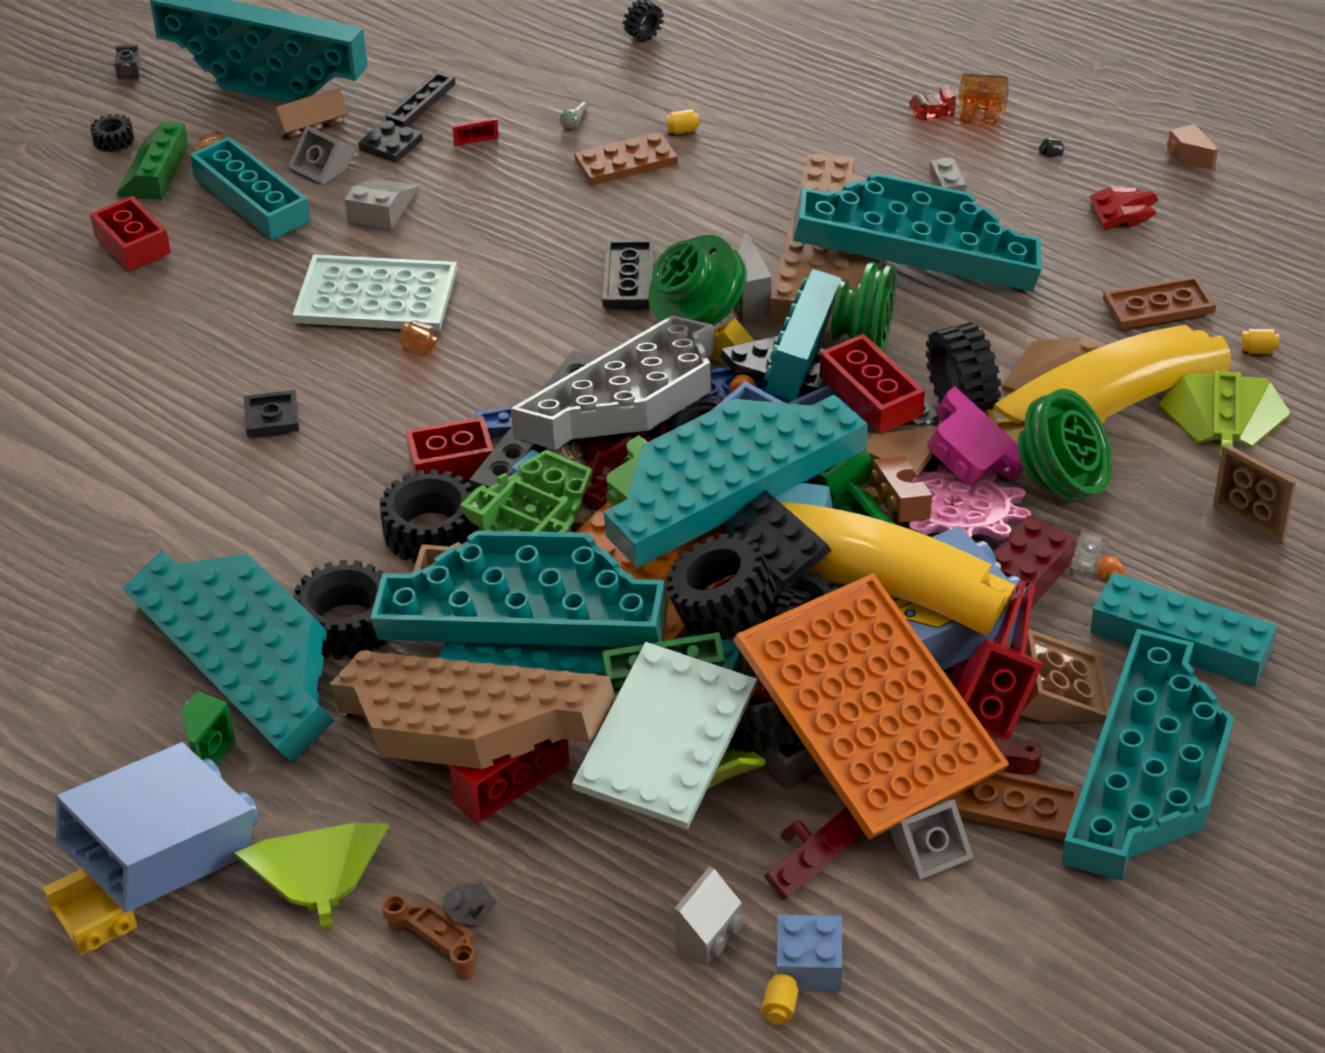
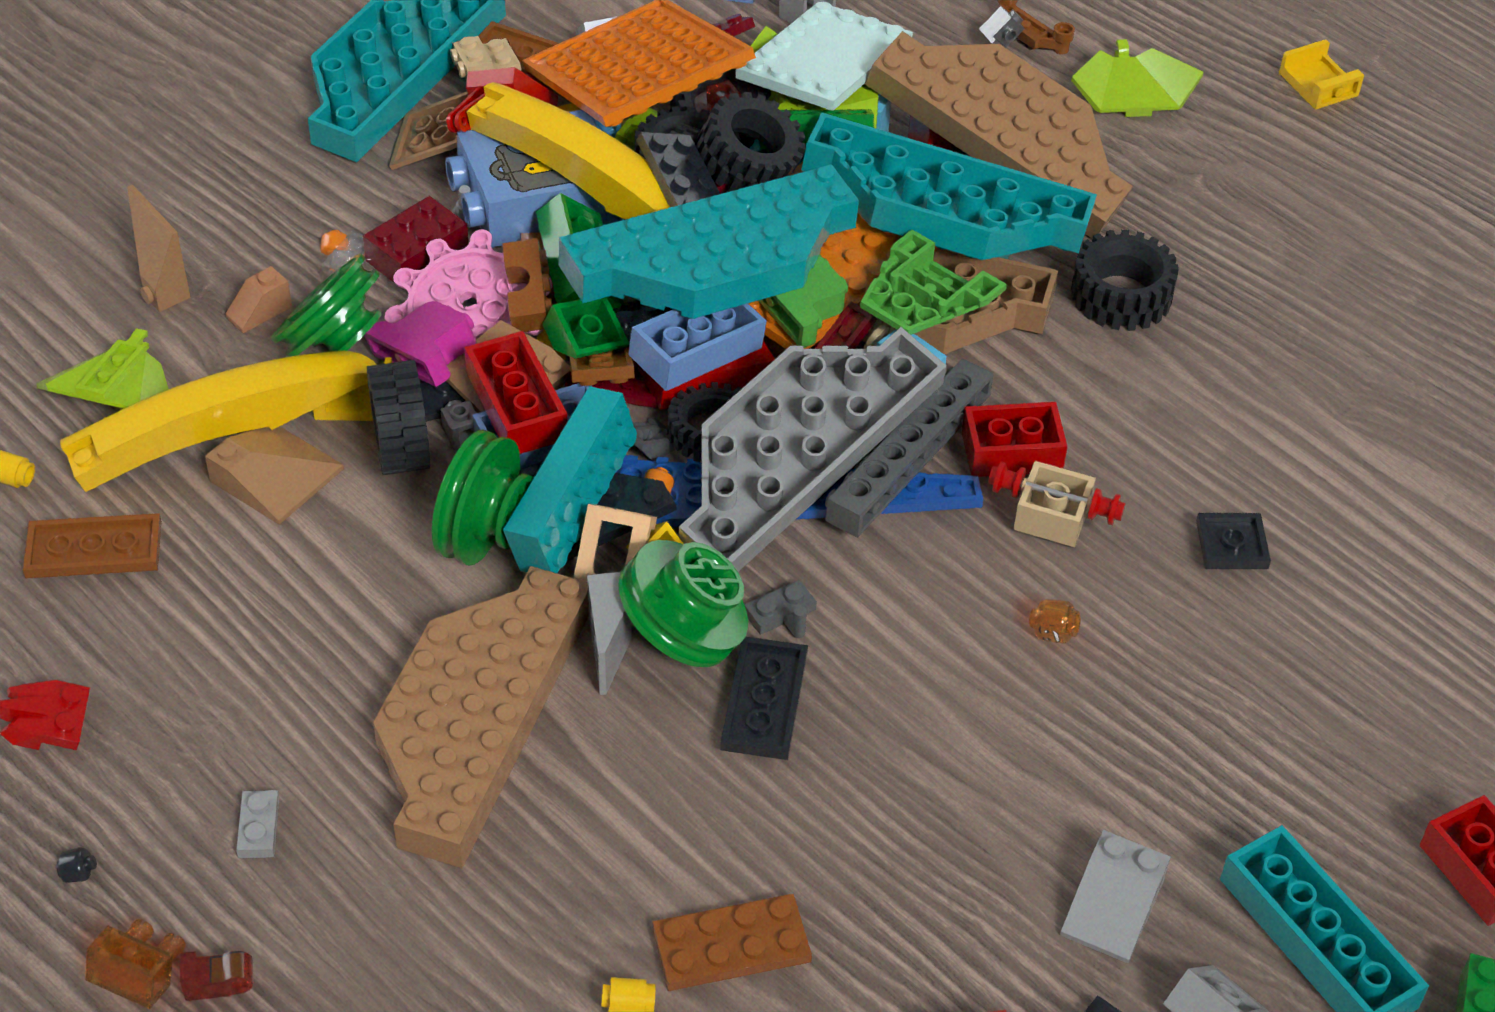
camera: 175 degrees left, 5 degrees up
(154, 825) = (1276, 89): medium blue brick -> none
(208, 727) = (1246, 174): green slope -> none
(244, 638) = (1233, 251): teal brick -> none
(374, 292) = (1115, 716): light aqua plate -> none
(414, 403) = (1054, 501): none -> tan brick
(420, 496) = (1042, 343): black tyre -> none
(622, 331) = (783, 606): none -> dark grey plate
(758, 321) = (641, 524): none -> light nougat panel
(918, 228) = (371, 636): teal brick -> none
(1049, 755) = (473, 55): none -> tan plate
(1140, 496) = (259, 300): none -> nougat slope
(1222, 638) = (302, 162): teal brick -> none

